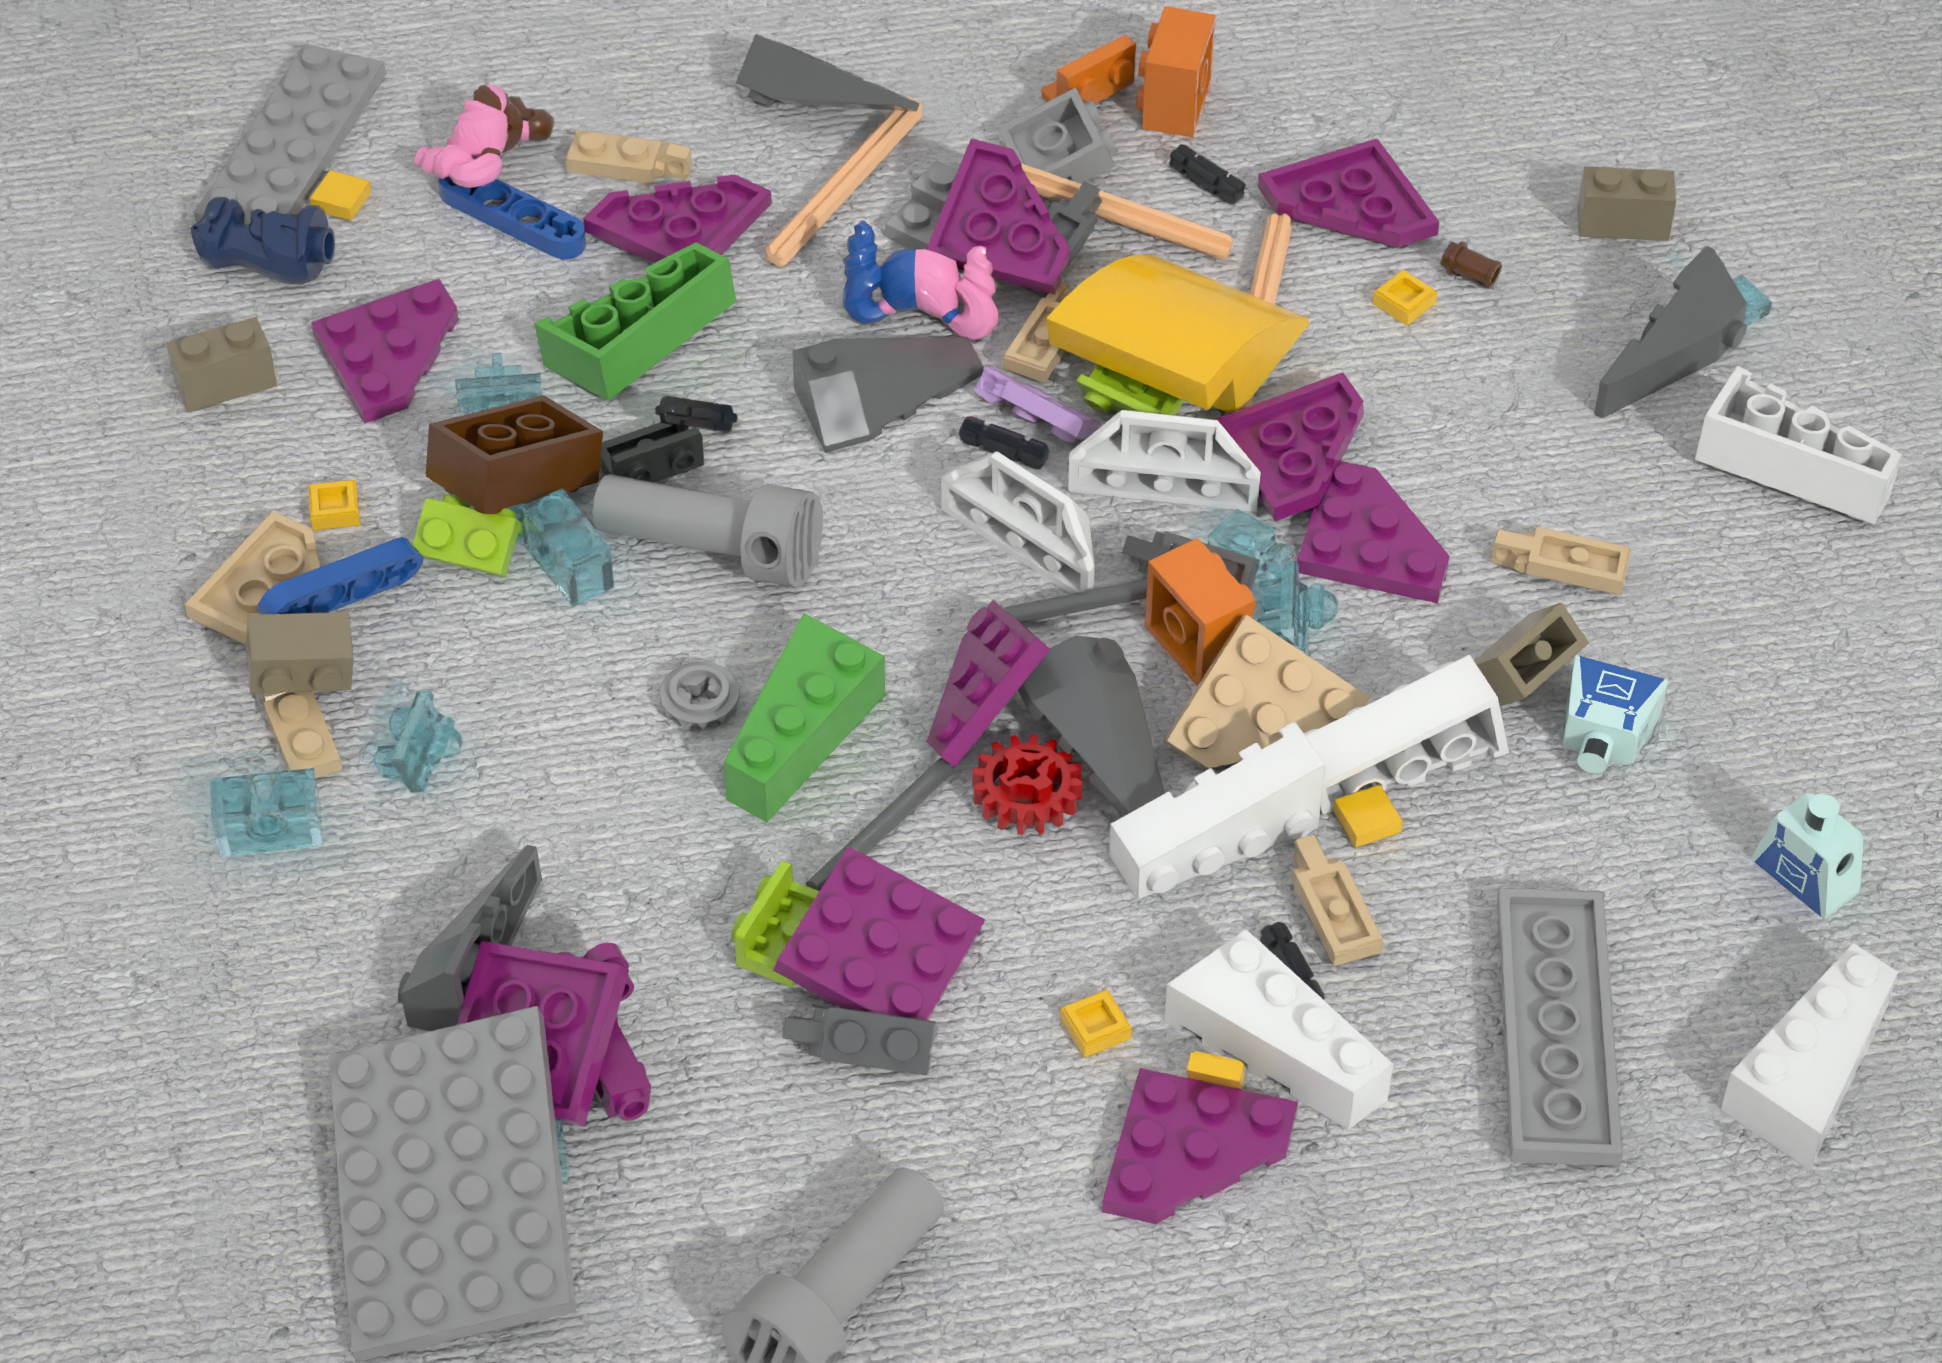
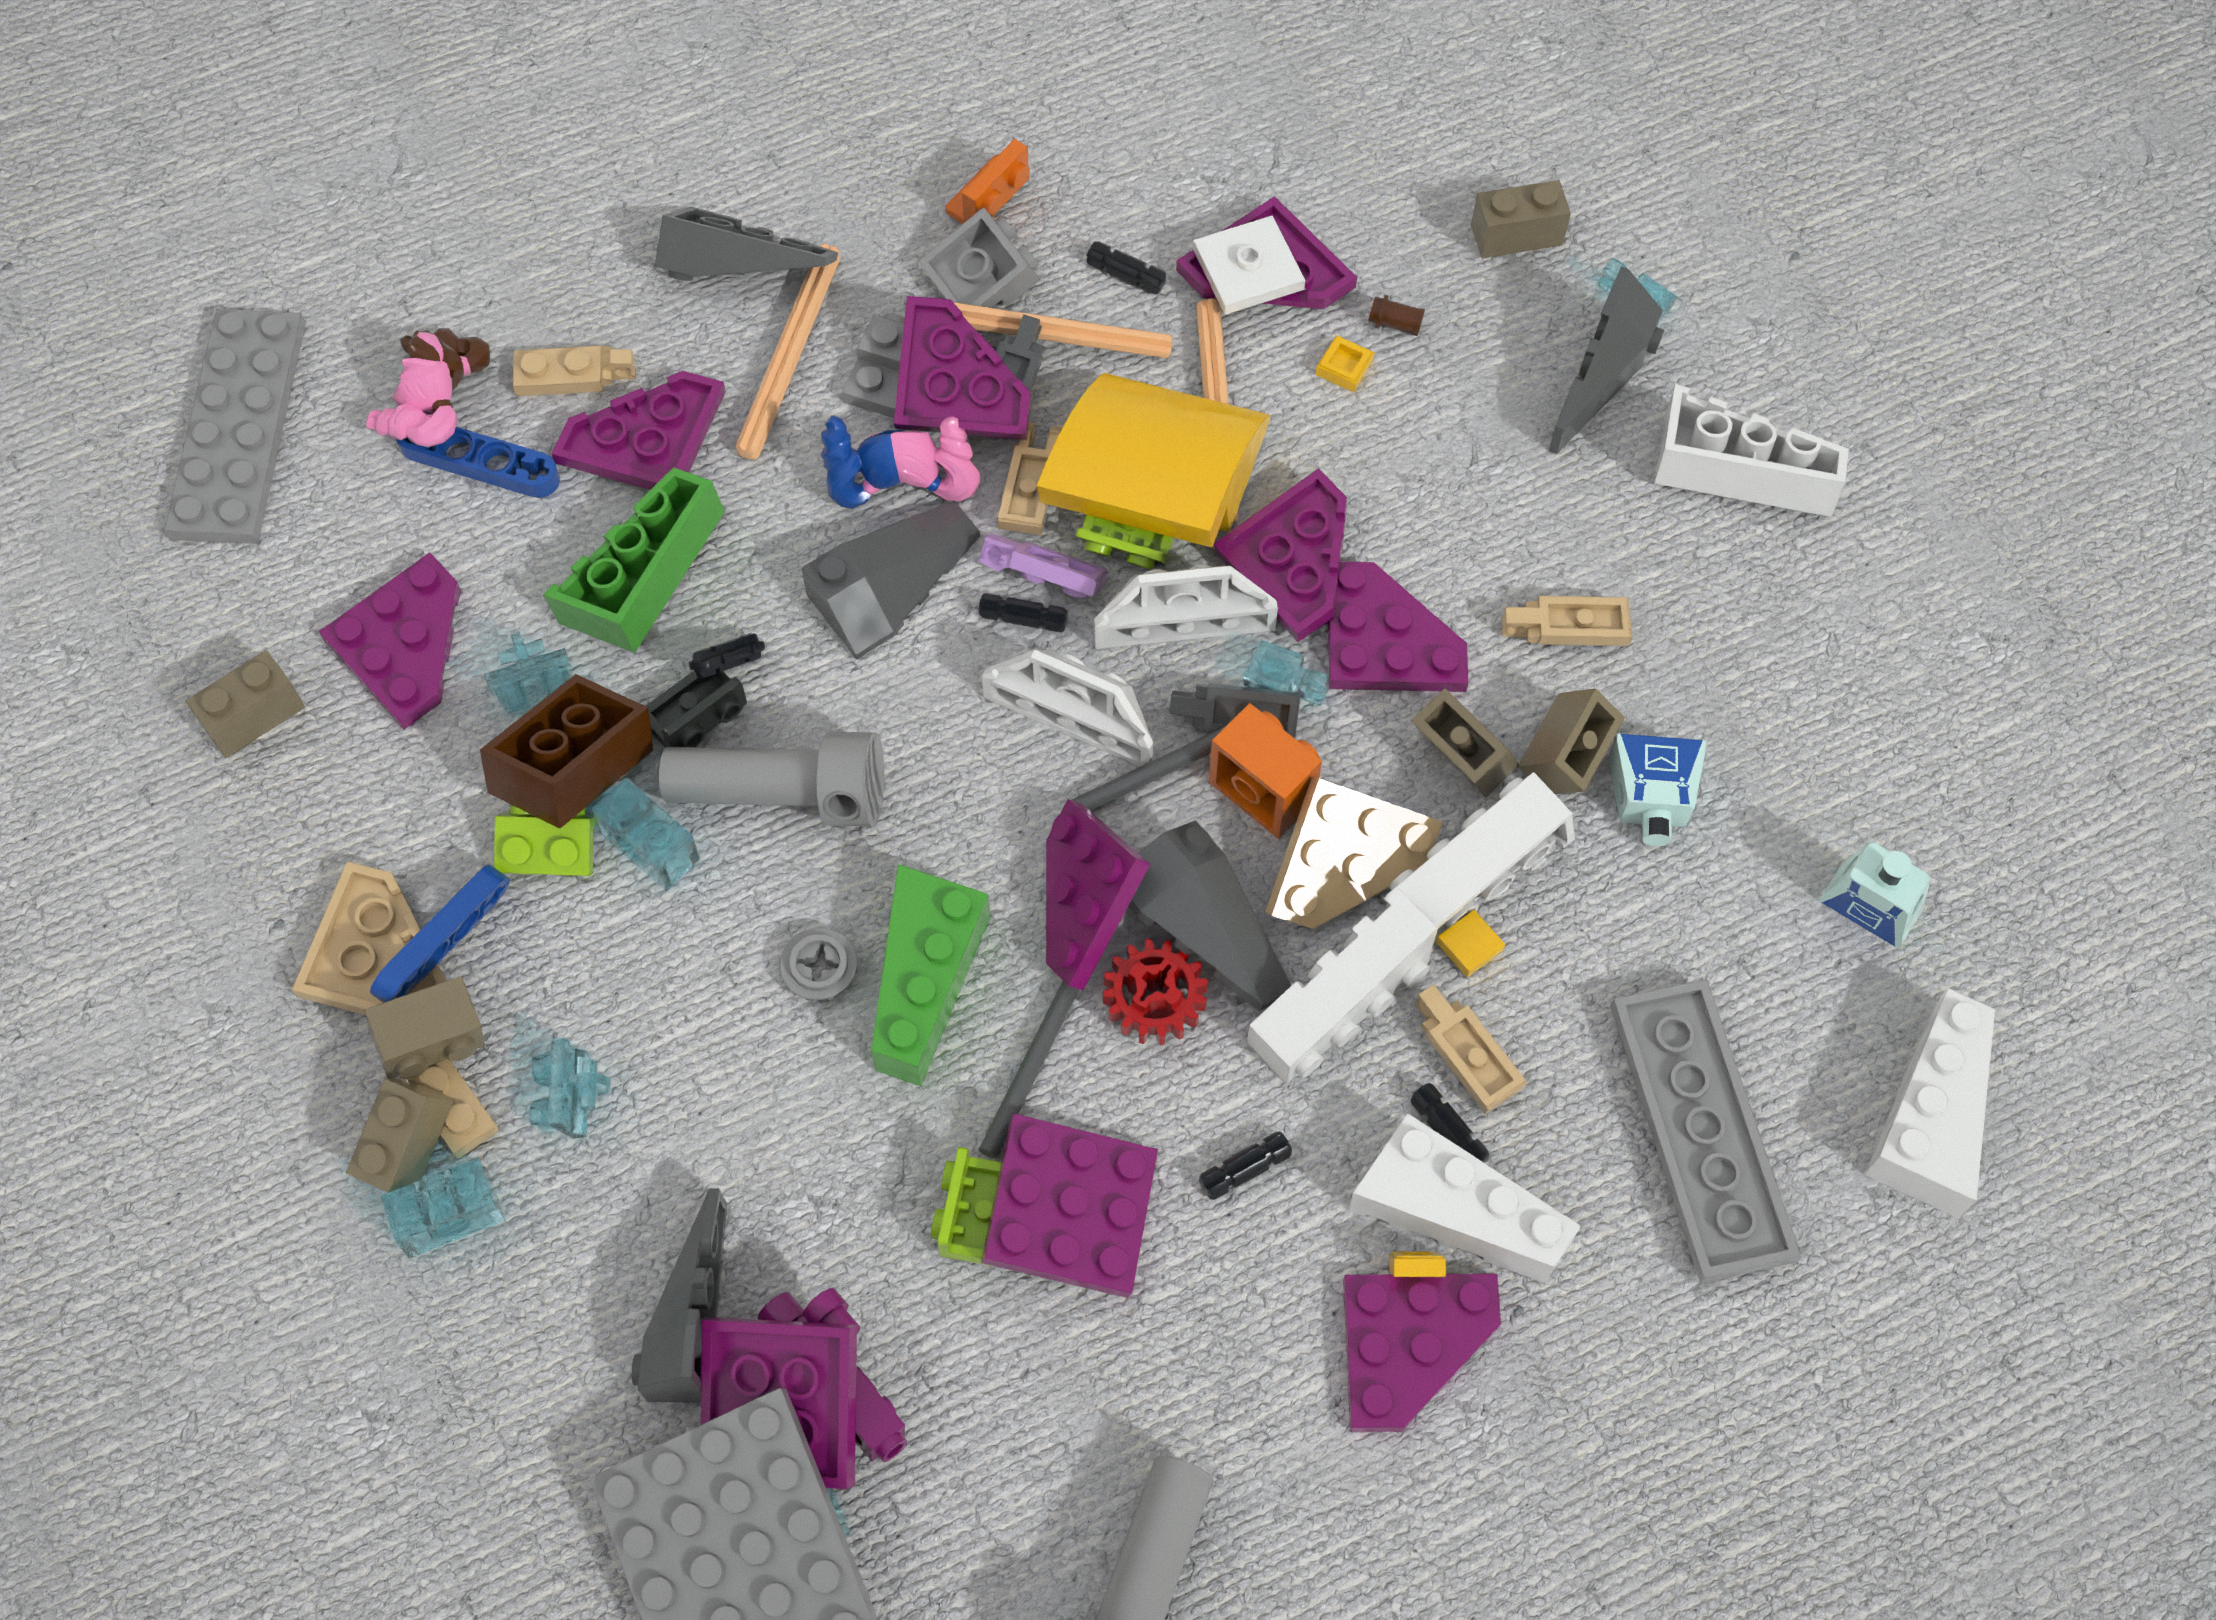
camera: 15 degrees left, 15 degrees up
(246, 733) = (399, 1134): none -> dark tan brick
(272, 244) = (259, 554): dark blue animal -> none
(334, 505) = (402, 833): yellow tile -> none
(341, 194) = (303, 475): yellow tile -> none
(865, 1038) = (1084, 1311): dark grey hinge -> none
(1070, 955) = (1245, 1165): none -> black axle
(1095, 1023) = (1288, 1232): yellow tile -> none
(1176, 71) = (1070, 165): orange brick -> none
(1298, 606) = (1336, 722): clear light blue hips -> none
(1329, 188) = (1248, 265): none -> white plate
(1412, 627) = (1465, 742): none -> dark tan brick

